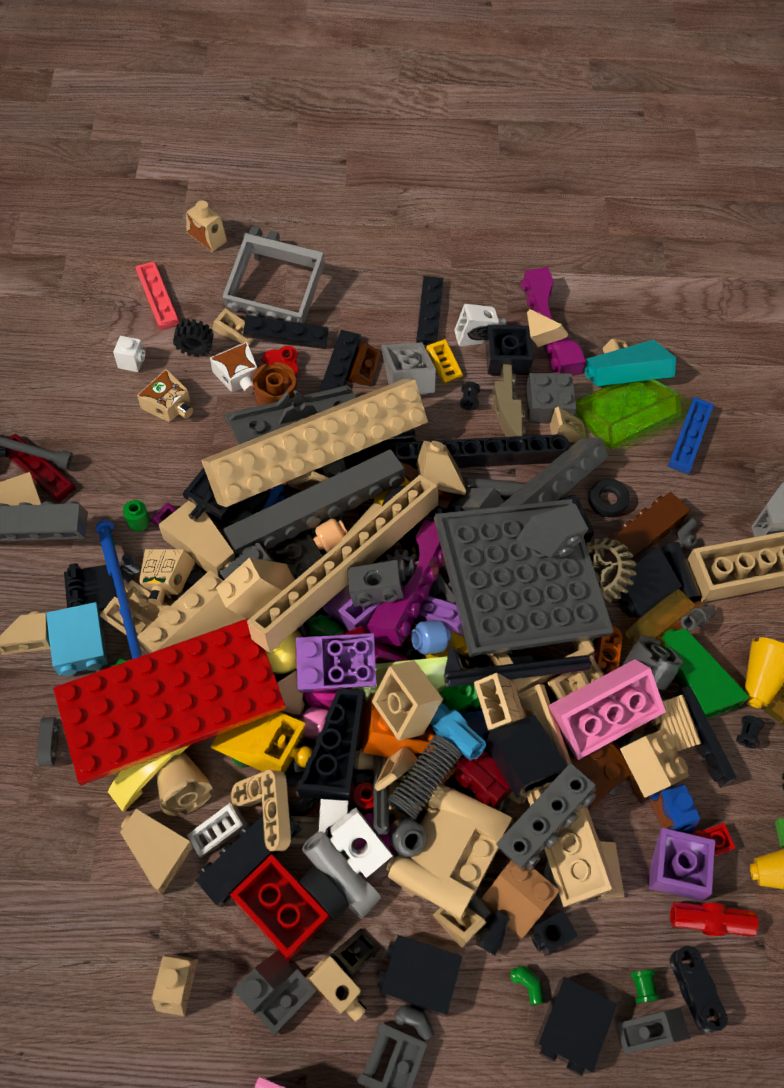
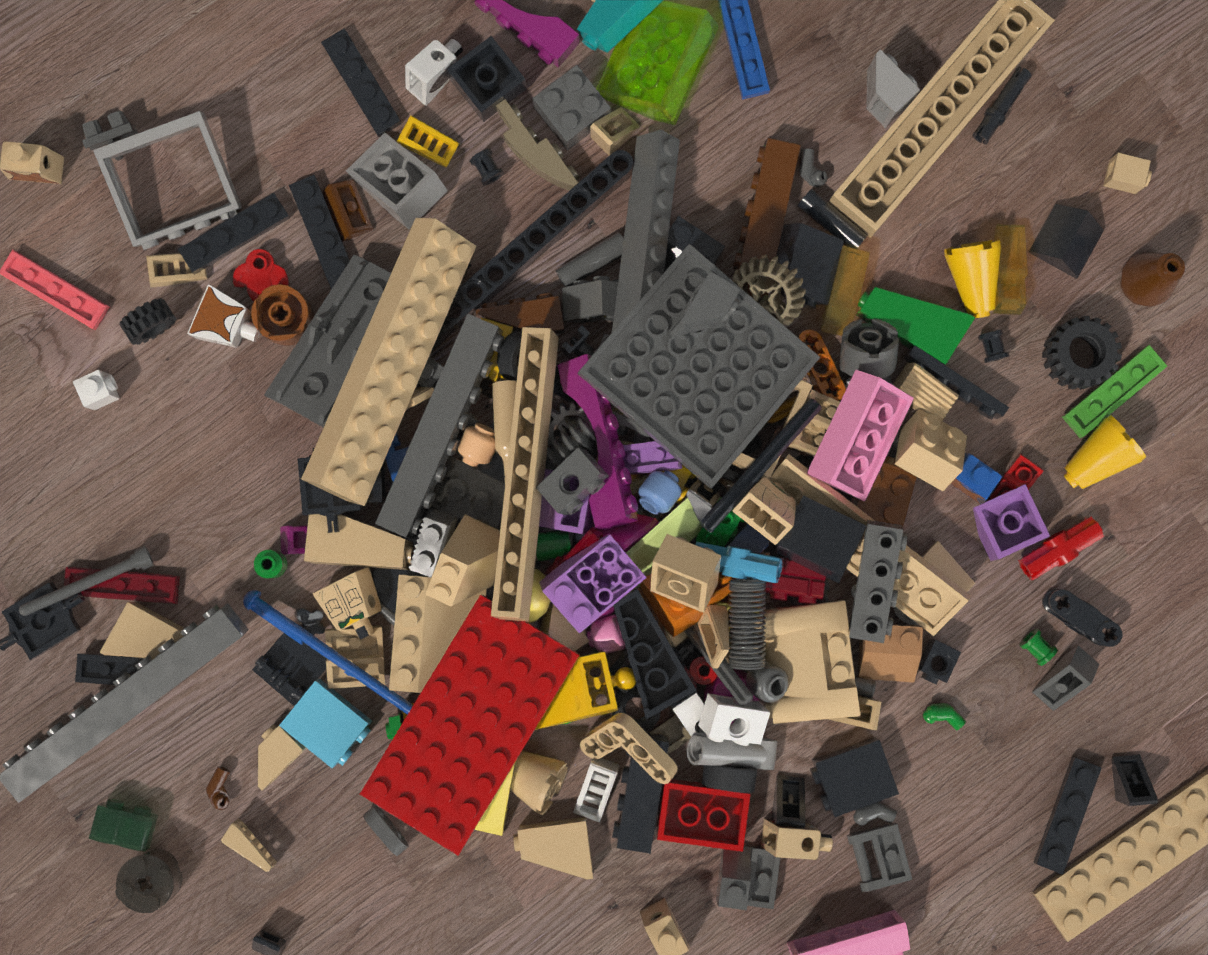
camera: 35 degrees left, 25 degrees up
(166, 398) = (181, 411): torso -> none
(440, 468) = (528, 291): tan slope -> none
(493, 933) = (891, 701): black cone -> none
(544, 330) = (507, 29): tan slope -> none
(575, 1026) = (1003, 722): black brick -> none
(603, 508) = (713, 168): black tyre -> none
(698, 616) = (879, 263): dark grey pin -> none

